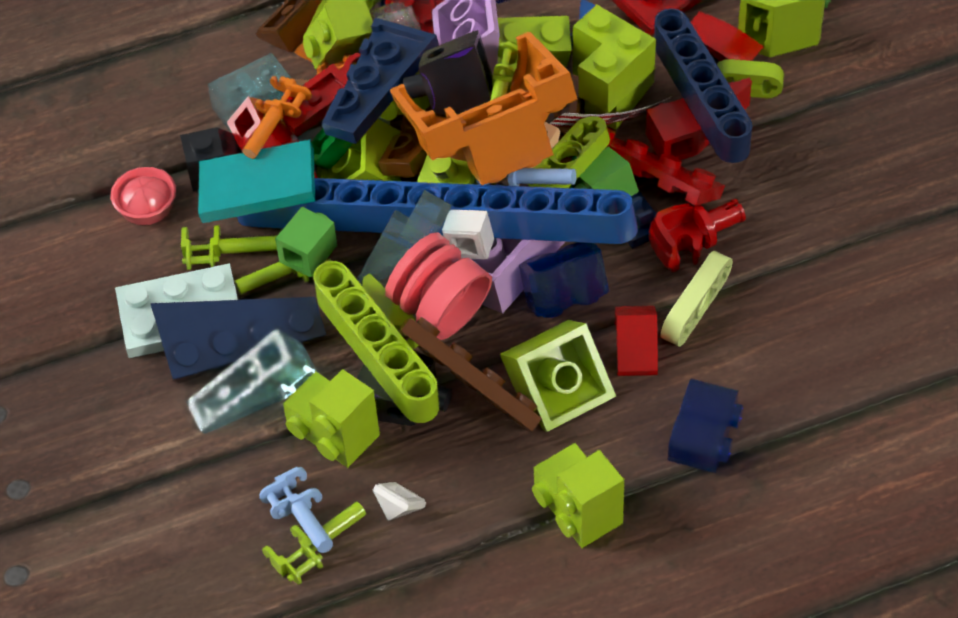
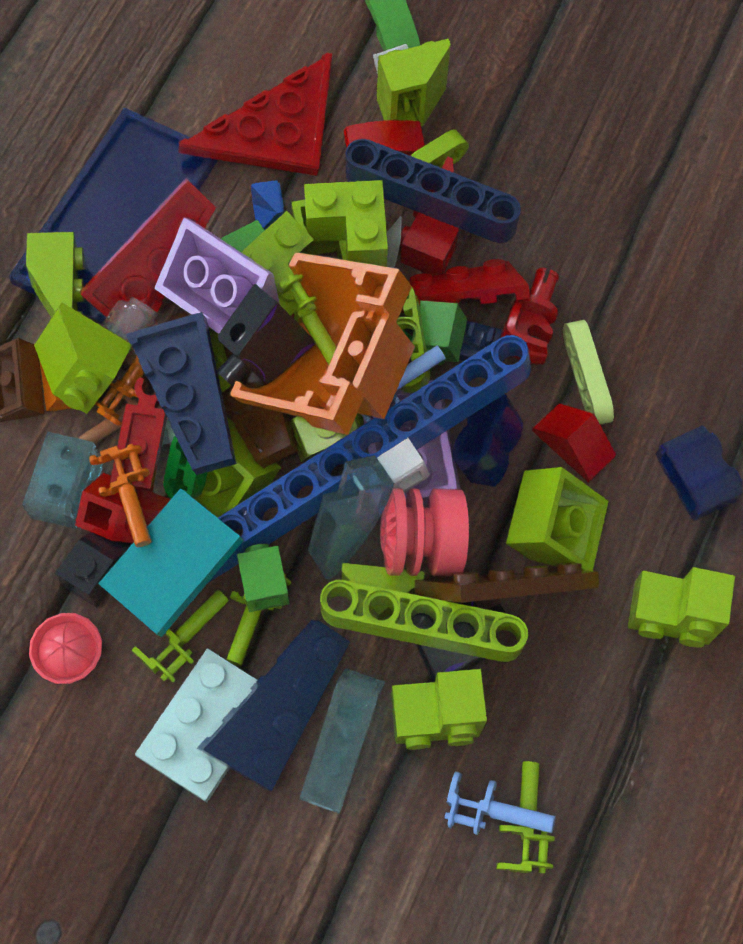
camera: 50 degrees left, 15 degrees up
(397, 500) = (553, 730): white slope -> none

